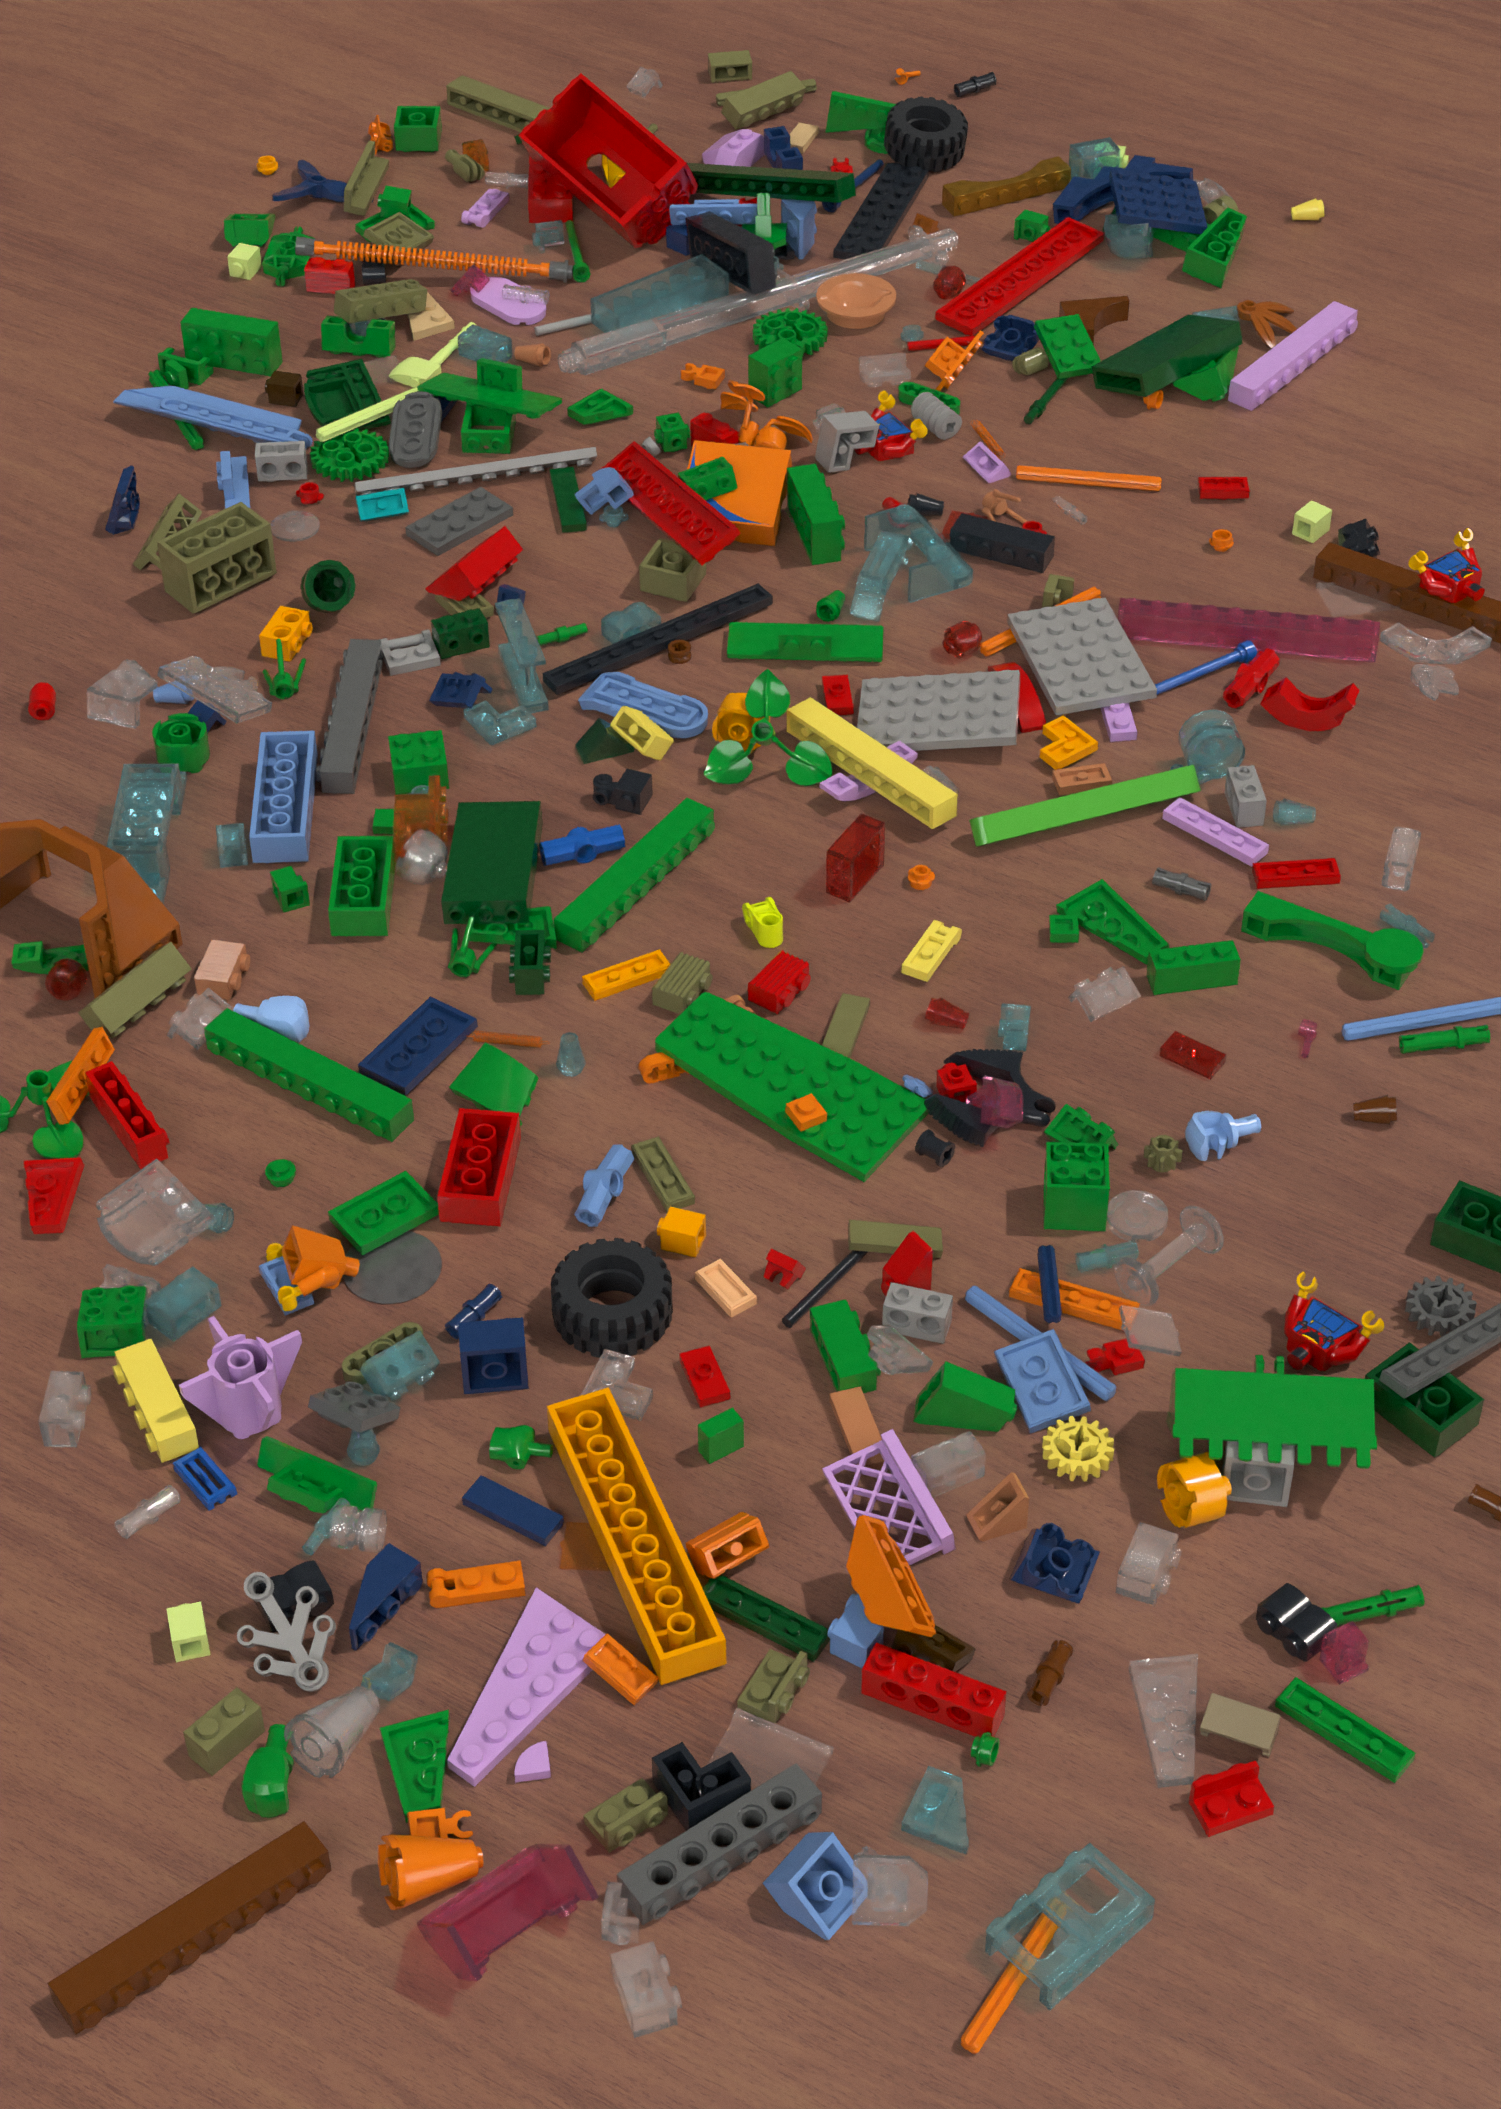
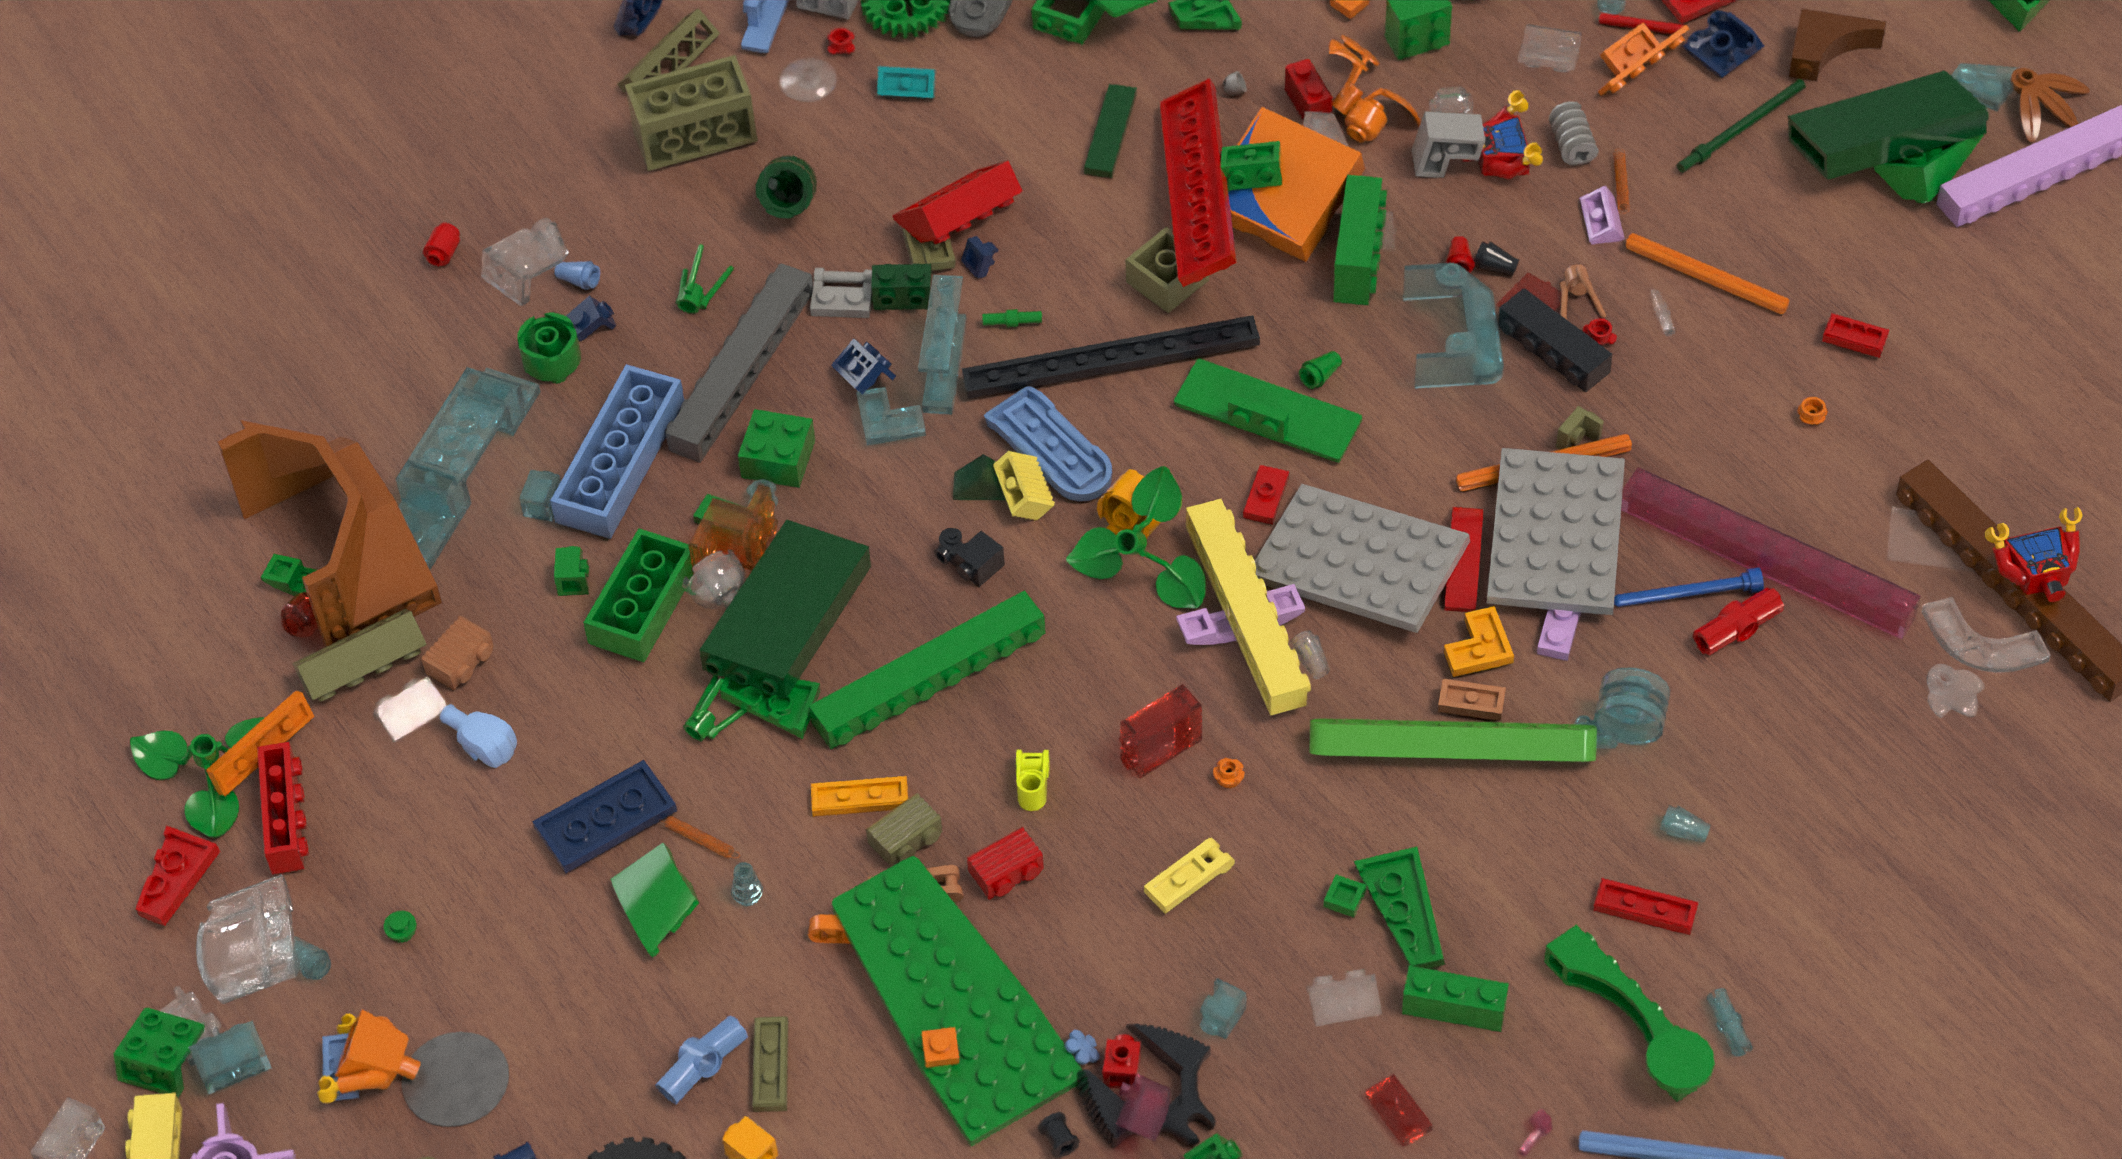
camera: 25 degrees right, 10 degrees up
(217, 687) = (618, 285): clear plate -> none
(291, 627) = (724, 229): light orange brick -> none
(309, 1074) = (480, 816): green brick -> none
(383, 1212) = (473, 1014): green plate -> none
(459, 521) = (981, 126): dark grey plate -> none
(479, 1167) = (586, 995): red brick -> none
(486, 471) = (1040, 67): light grey plate -> none
(529, 962) = (760, 752): dark green brick -> none
(581, 845) = (892, 612): blue piece -> none
(606, 487) = (1146, 136): medium blue brick -> none
(613, 517) = (1147, 170): clear light blue plate -> none
(630, 621) = (1087, 327): clear light blue brick -> none
(671, 432) = (1263, 78): green brick -> none
(679, 651) = (1126, 389): reddish brown bush -> none
(846, 1024) = (1048, 944): olive tile -> none
(878, 574) = (1387, 345): clear light blue piece -> none
(909, 391) = (1582, 93): green beam -> none
(946, 1014) = (1160, 965): clear red cone -> none
(962, 639) = (1437, 464): clear red head -> none
(1031, 361) = (1736, 82): olive arm -> none
(1067, 345) = (1775, 77): green plate -> none
(1154, 400) = (1845, 182): orange plate -> none
(1181, 883) = (1507, 878): dark grey pin -> none
(1215, 831) = (1582, 821): lavender plate -> none
(1245, 796) = (1638, 785): light grey brick -> none
(1307, 712) = (1773, 687): red arch -> none
(1312, 521) = (1932, 418): yellowish green brick -> none
(1360, 538) = (1973, 464): black bracket -> none
(1401, 858) = (1769, 931): clear brick -> none

